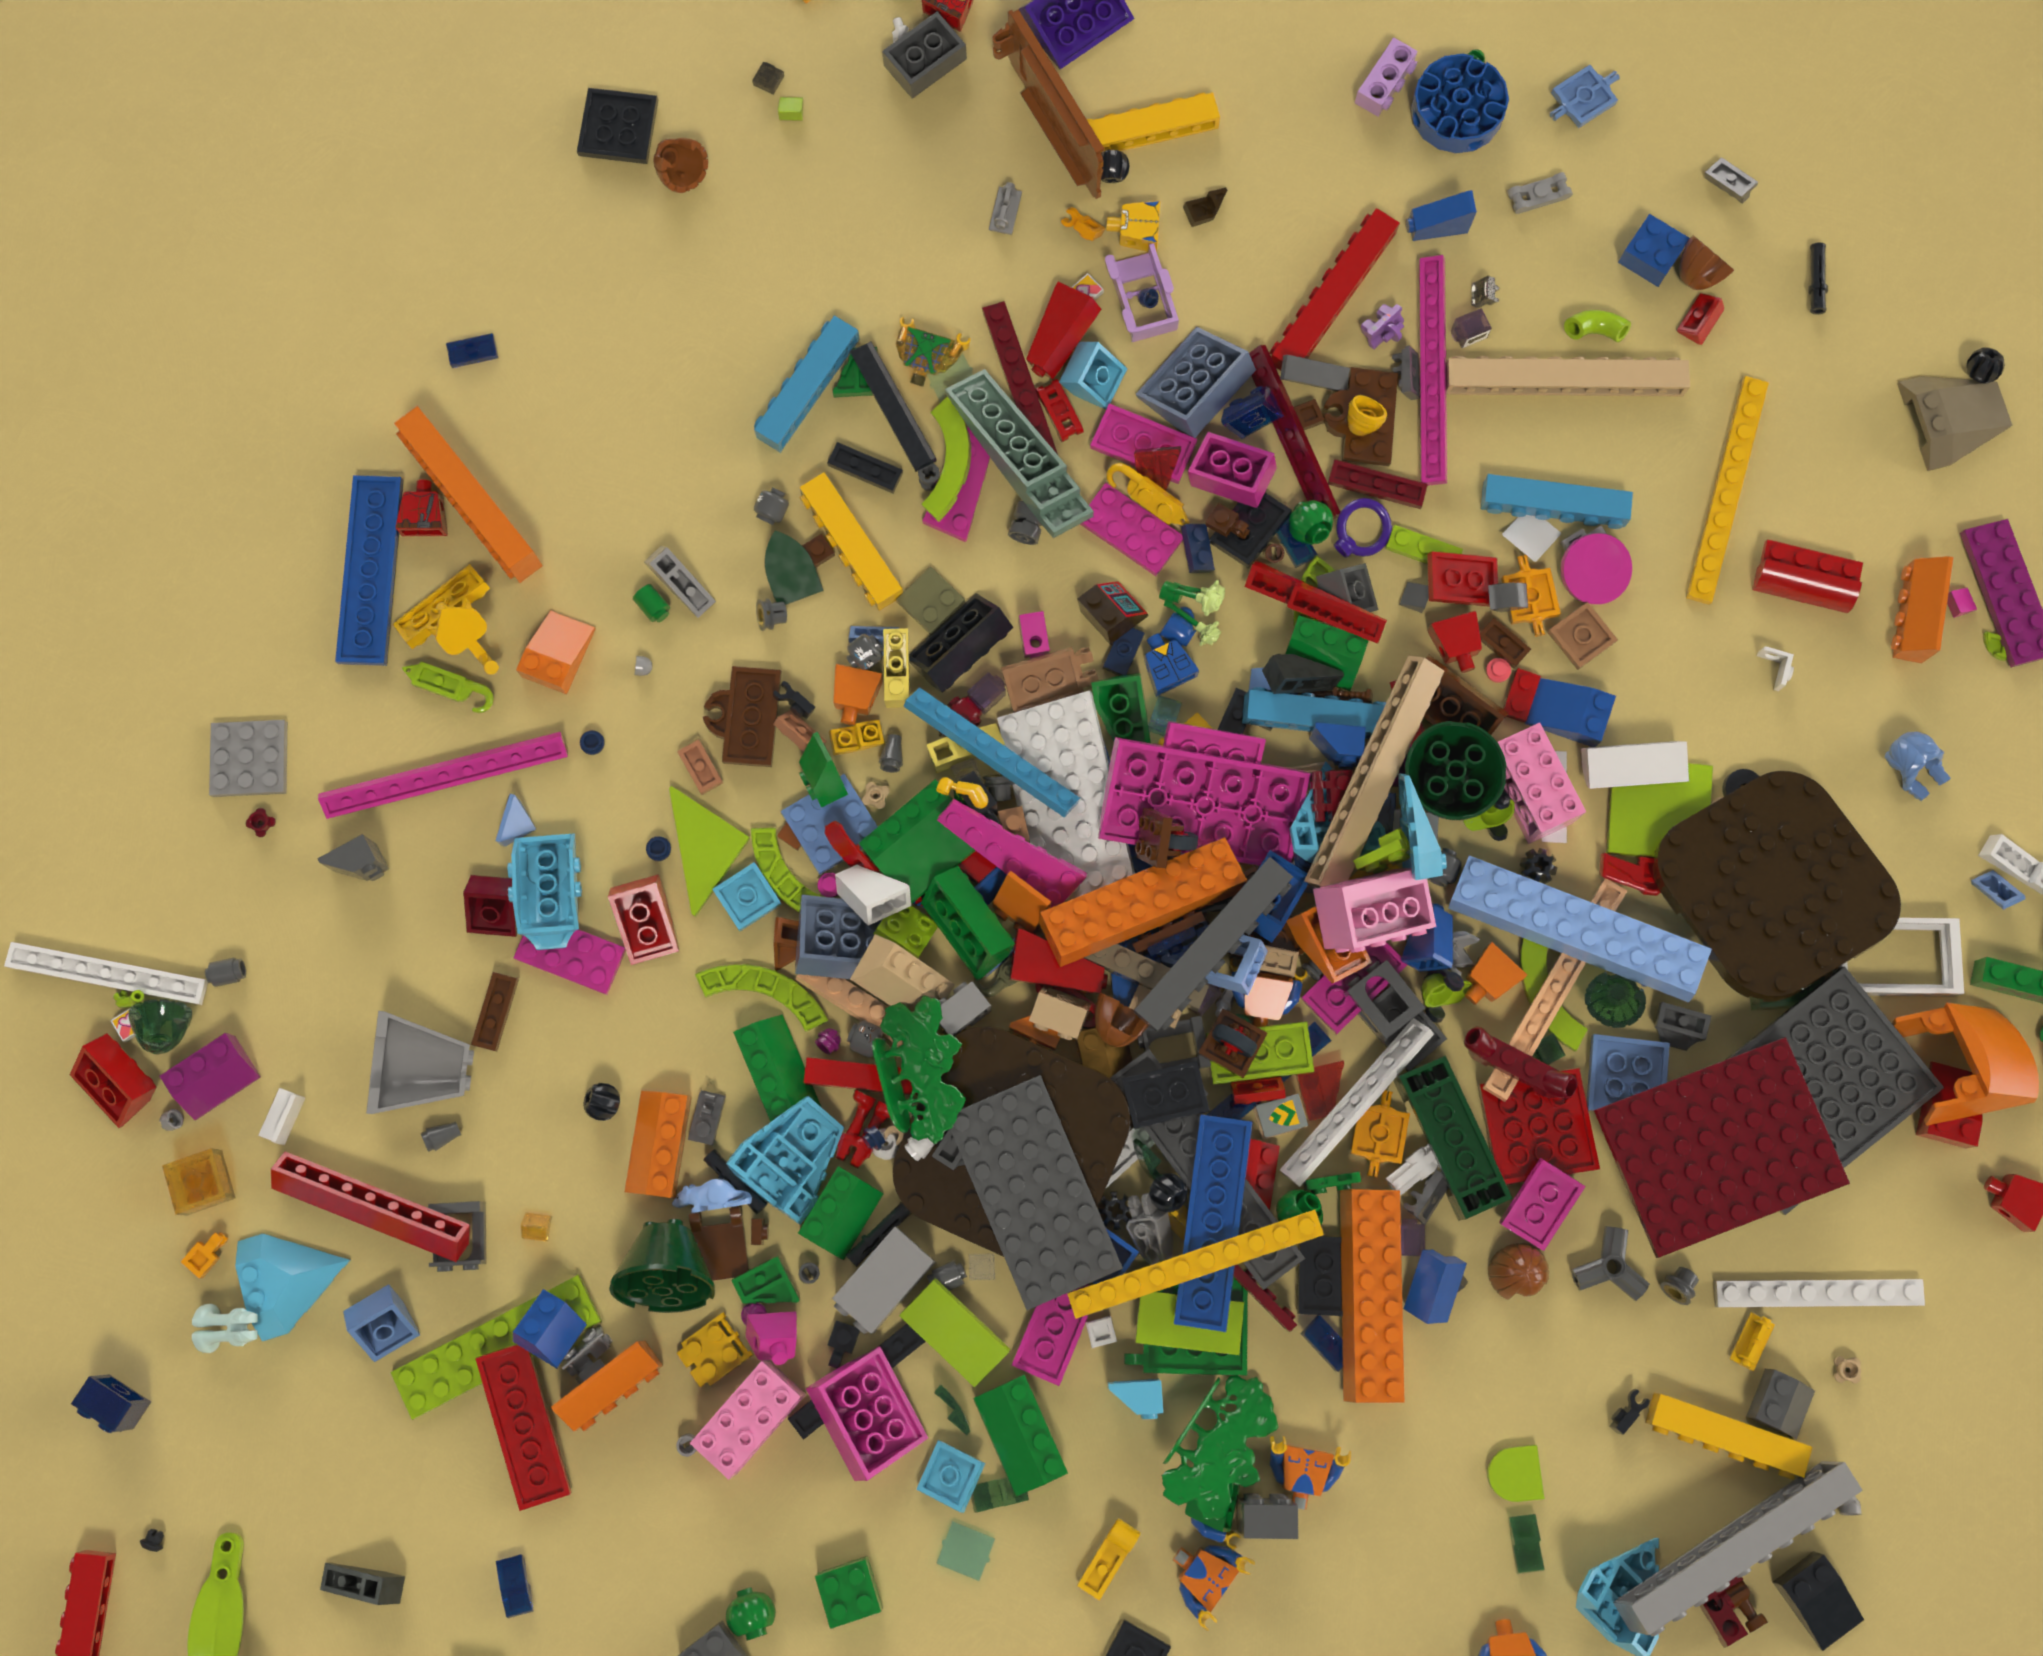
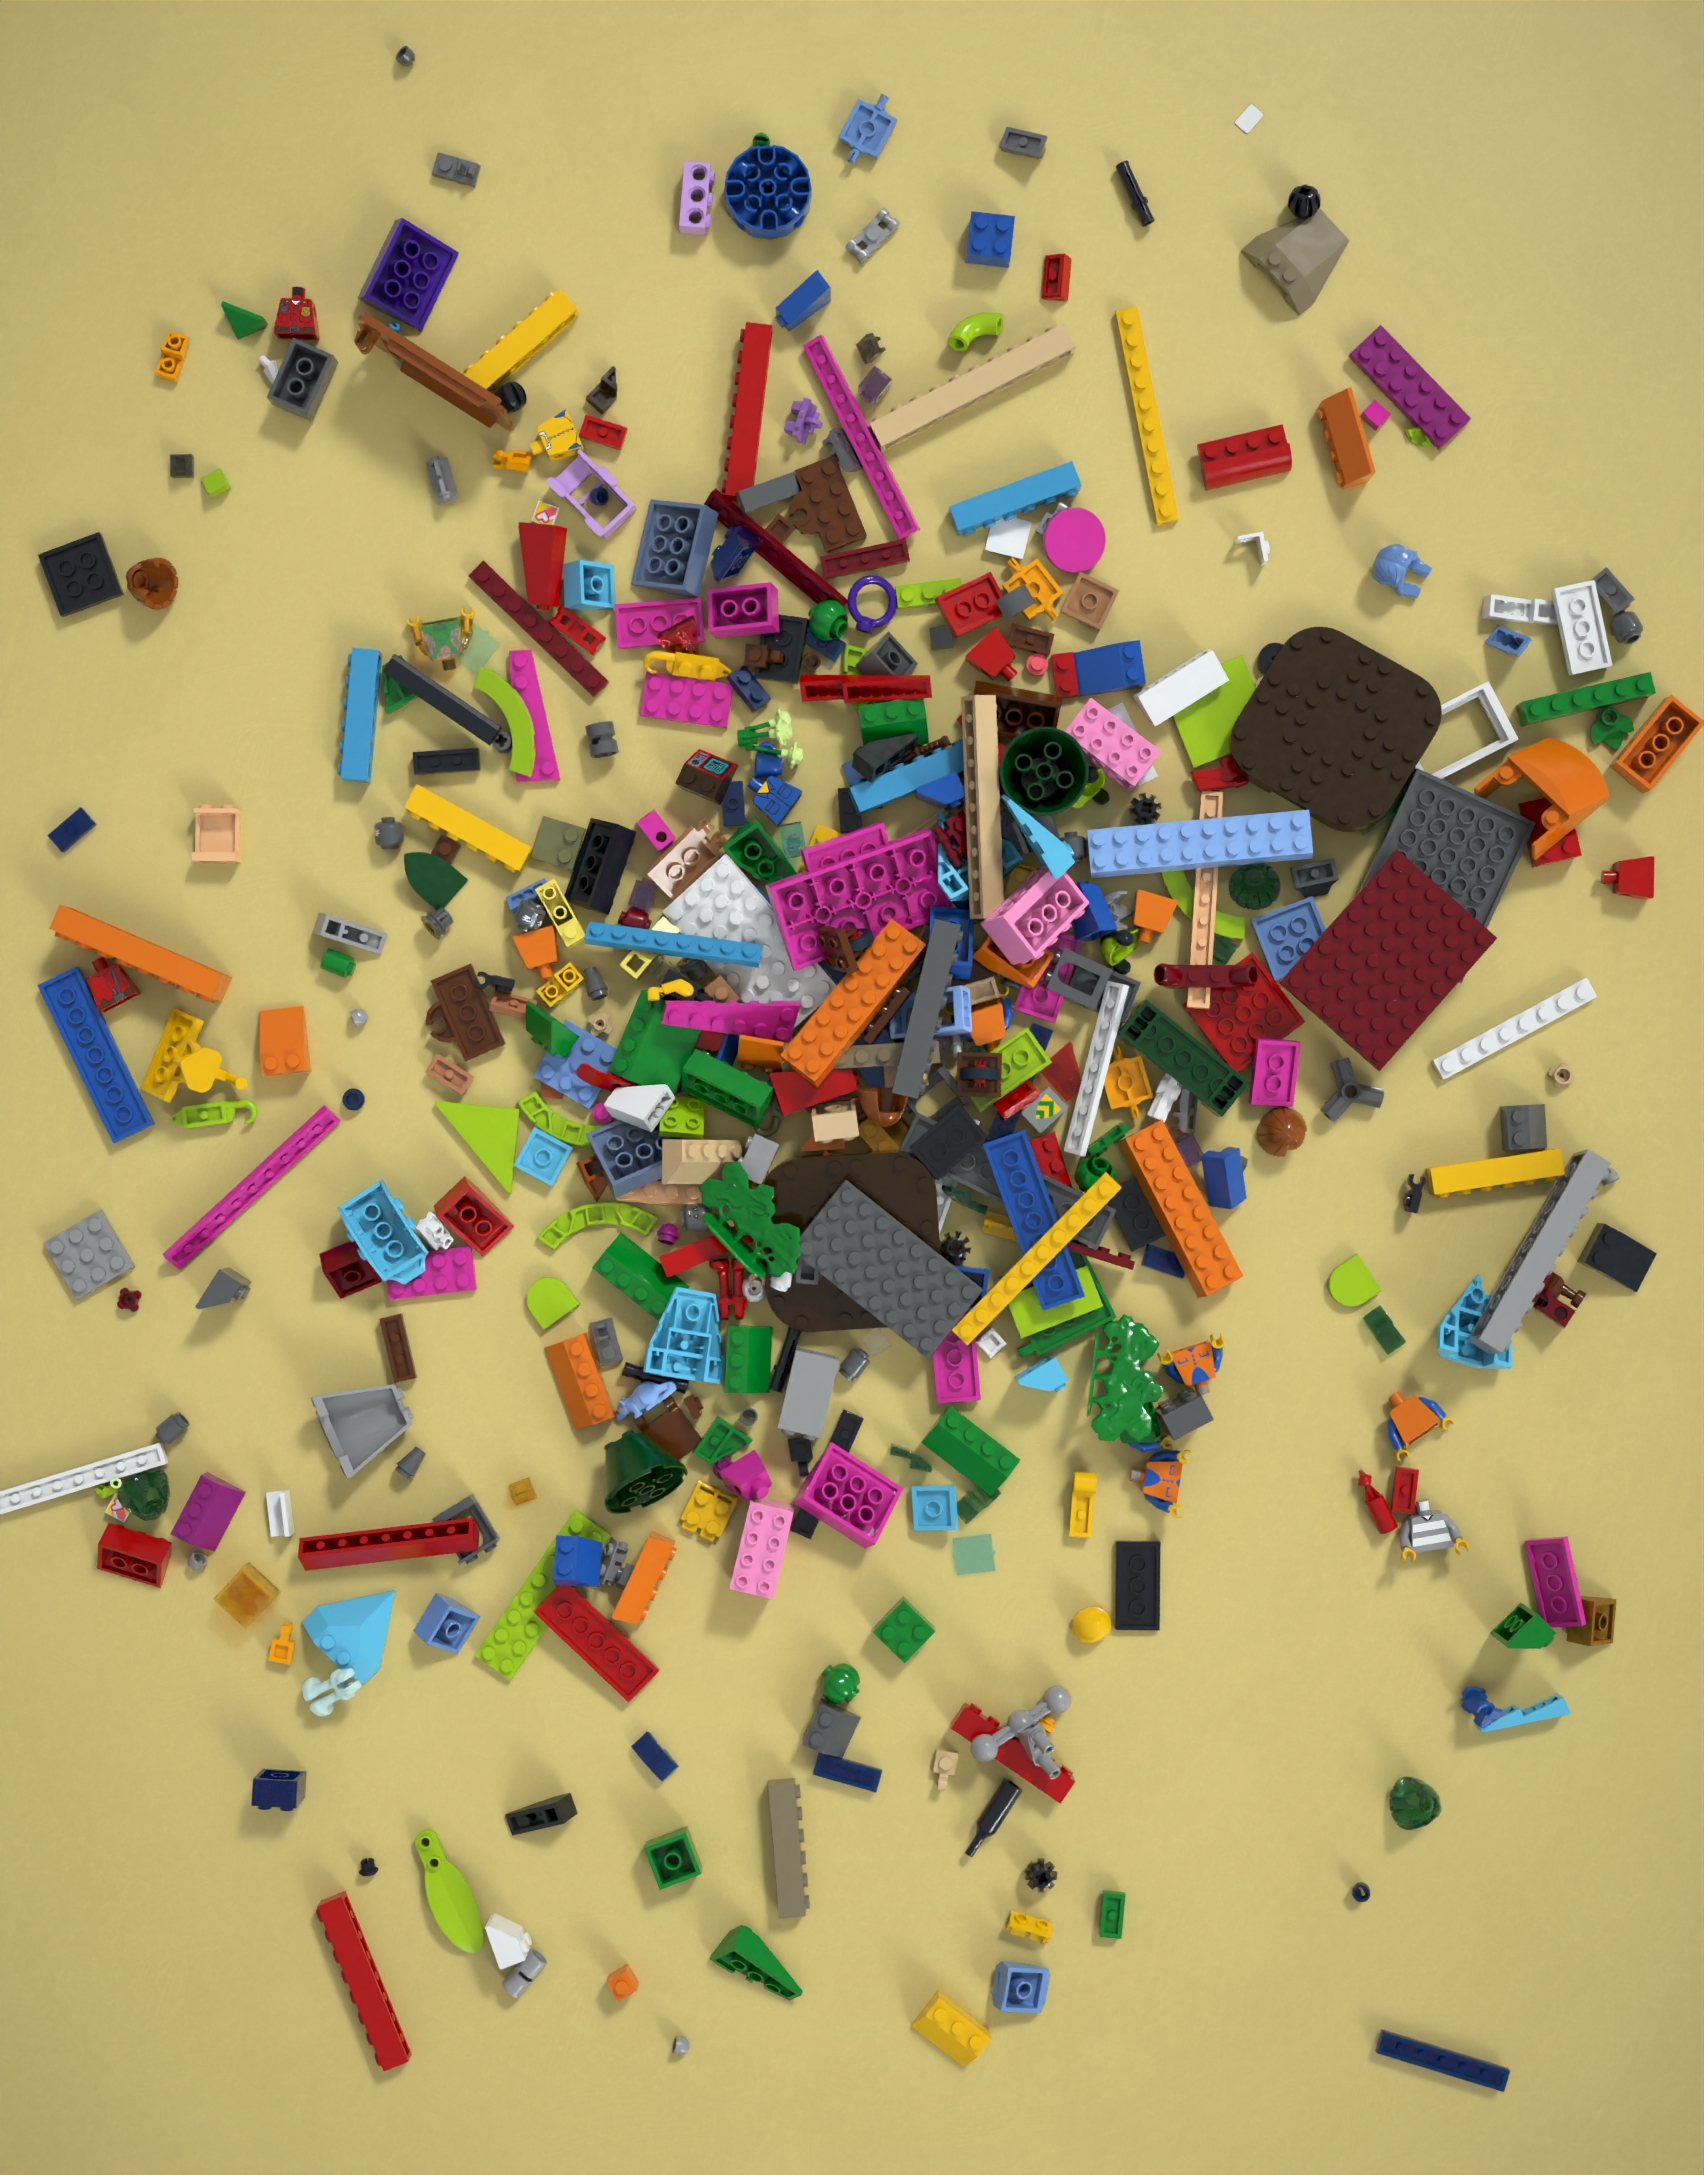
camera: 30 degrees left, 10 degrees up
(514, 823) = (329, 1194): medium blue slope -> none
(596, 913) = (434, 1232): none -> white hips
(601, 1101) = (520, 1372): black piece -> none
(606, 424) = (217, 834): none -> light nougat panel
(658, 848) = (453, 1155): dark blue plate -> none
(673, 1045) = (550, 1300): none -> lime tile
(689, 1450) = (729, 1592): light grey hinge -> none
(873, 1138) = (743, 1291): dark blue plate -> none
(954, 1332) = (881, 1401): lime tile -> none
(1020, 453) = (565, 686): sand green slope -> none
(1150, 1230) = (988, 1248): light grey hinge -> none
(1168, 1192) = (988, 1214): black piece -> none
(1173, 944) = (894, 1023): clear blue plate -> none
(1184, 242) = (603, 432): none -> red plate
(1365, 415) = (827, 509): yellow hat -> none
(1392, 848) = (1026, 858): lime plate -> none
(1680, 1286) = (1408, 1078): dark grey piece -> none
(1701, 266) = (1036, 233): dark orange hair -> none
(1752, 1341) = (1480, 1091): yellow hinge -> none
(1964, 266) = (1249, 118): none -> white sticker

